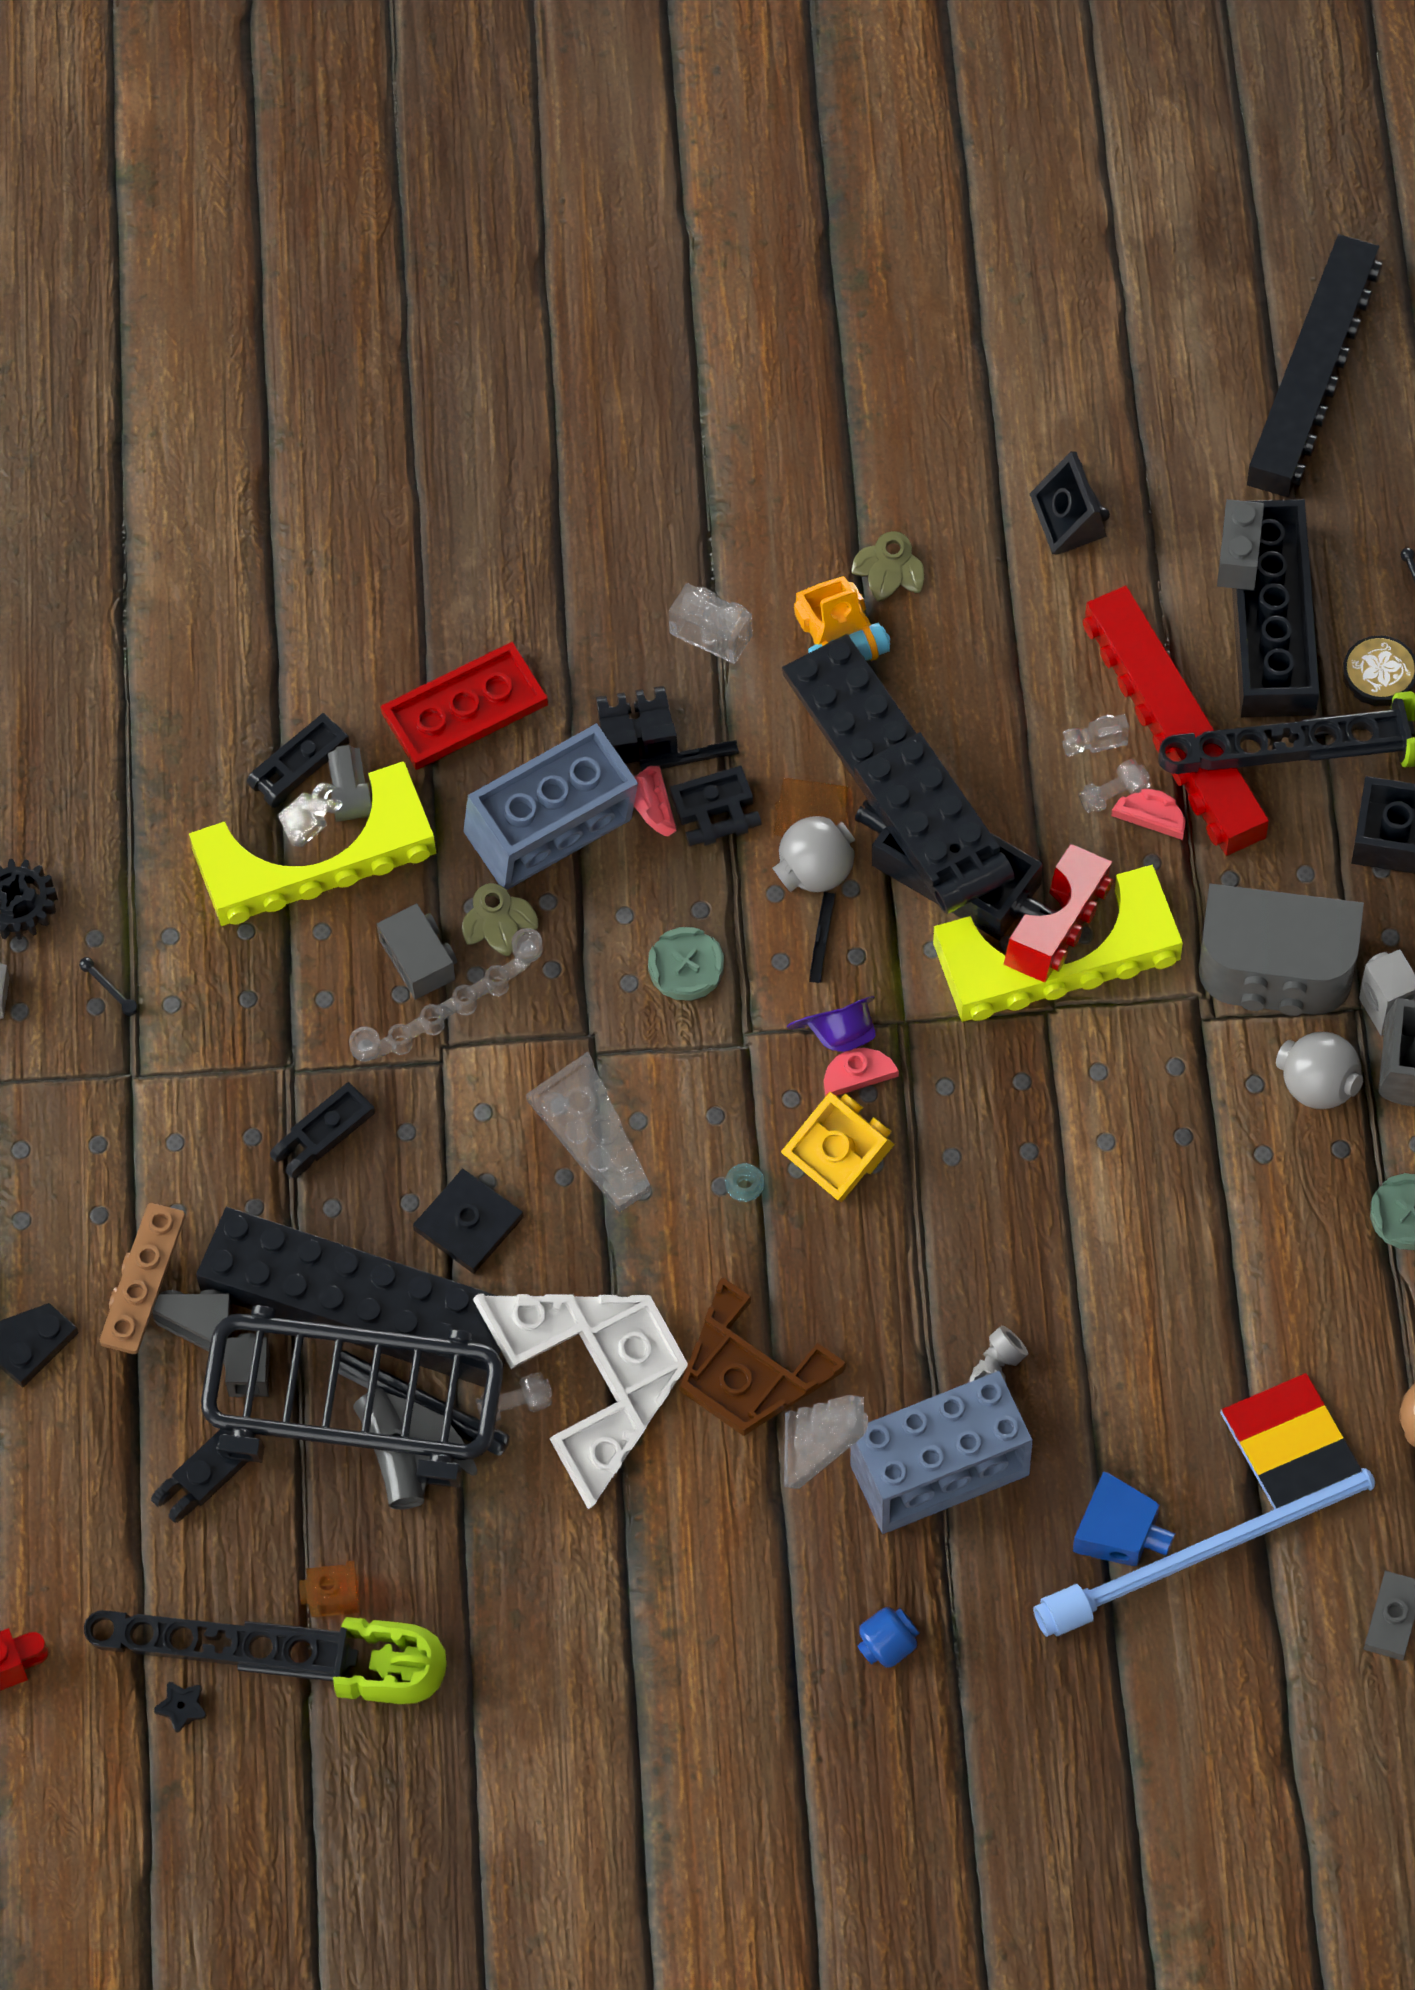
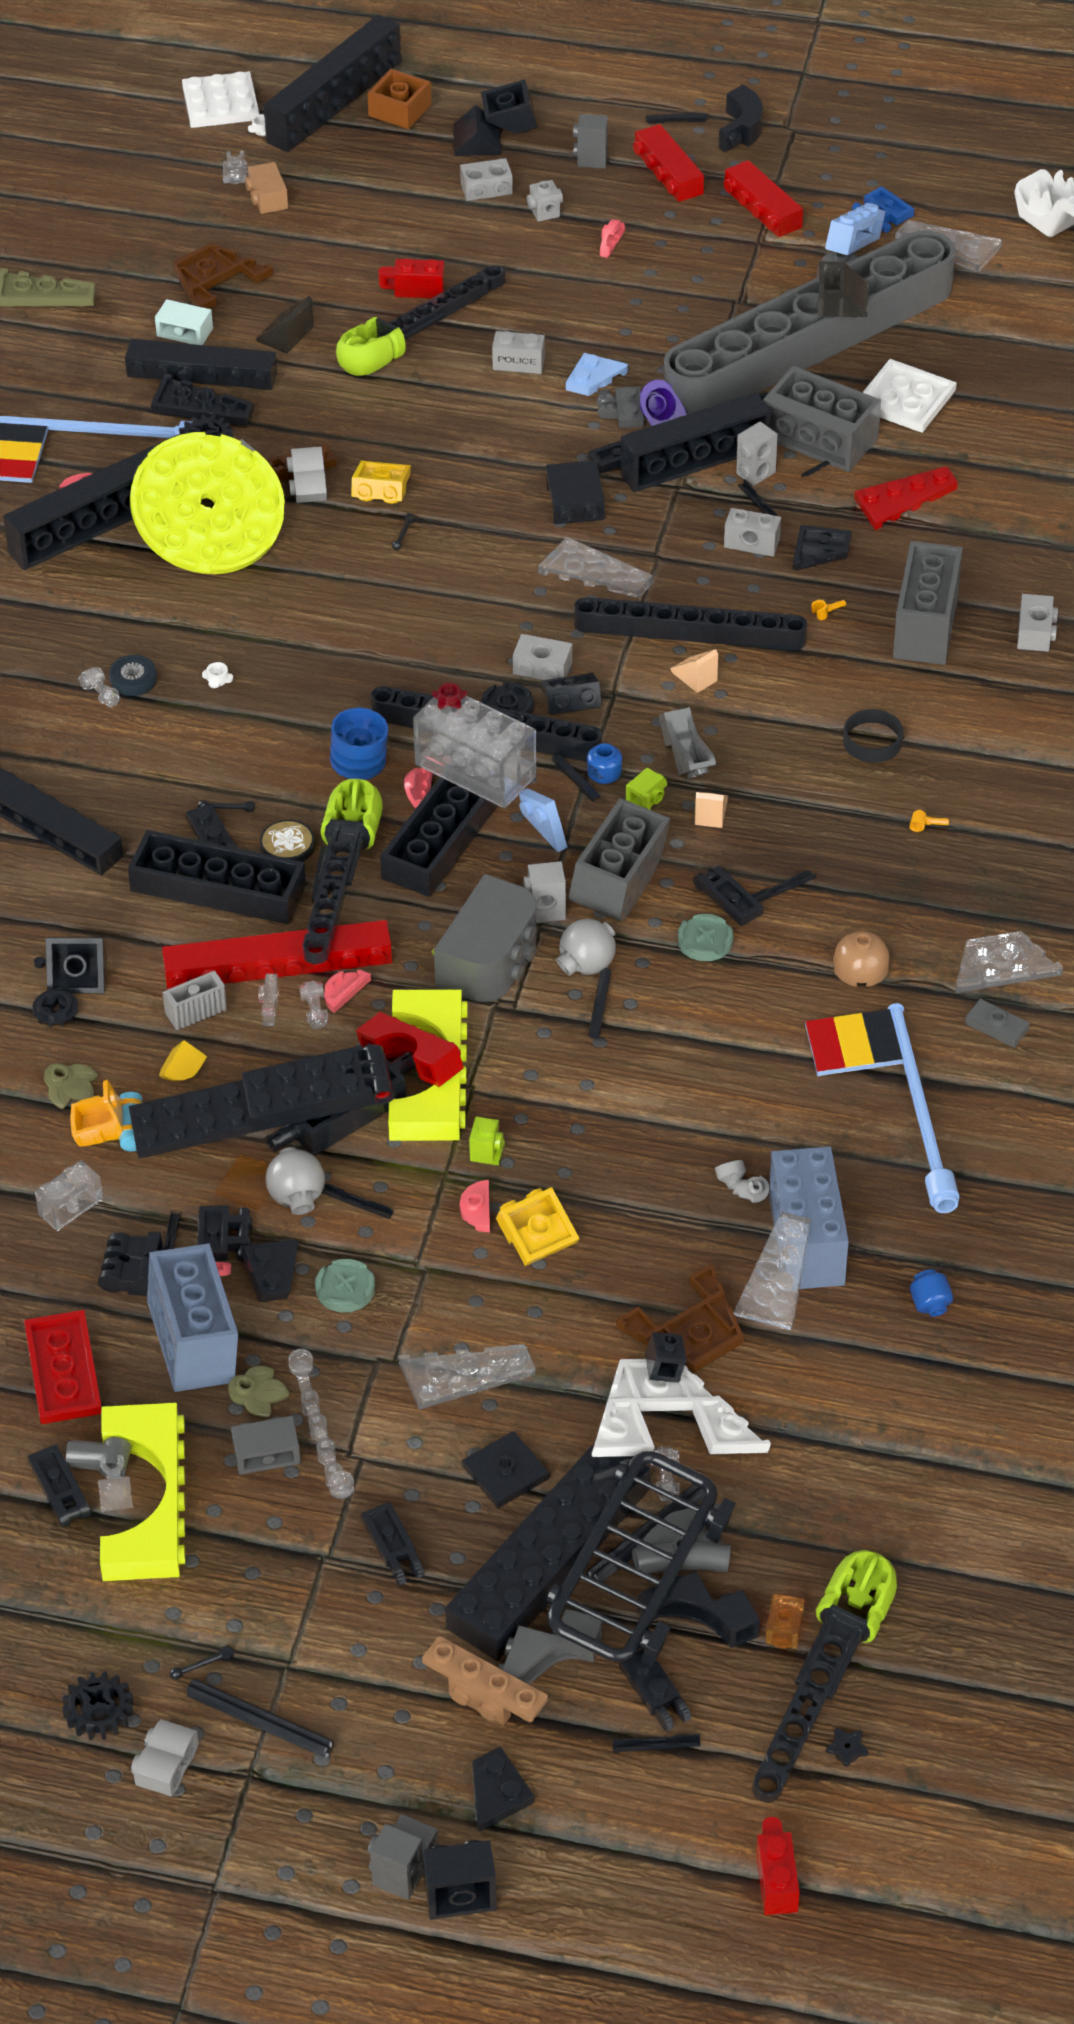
camera: 75 degrees left, 15 degrees down
(49, 1068) = (260, 1718): none -> black axle
(134, 1496) = (639, 1744): none -> black piece
(323, 1524) = (728, 1616): none -> black arch
(665, 1344) = (665, 1357): none -> black brick
(679, 874) = (271, 1268): none -> black wing
(744, 1172) = (541, 1285): clear light blue plate -> none
(841, 1028) = (441, 1197): dark purple piece -> none
(954, 1049) = (486, 1141): none -> lime brick
(958, 674) = (182, 1063): none -> yellow brick
(1014, 499) = (48, 1001): none -> black gear
(1058, 651) = (195, 1000): none -> light grey brick
(1120, 1524) = (885, 1144): blue torso -> none
(1240, 544) = (173, 863): dark grey brick -> none
(1245, 1116) = (599, 1003): none -> black bar
(1359, 582) = (208, 826): none -> black plate

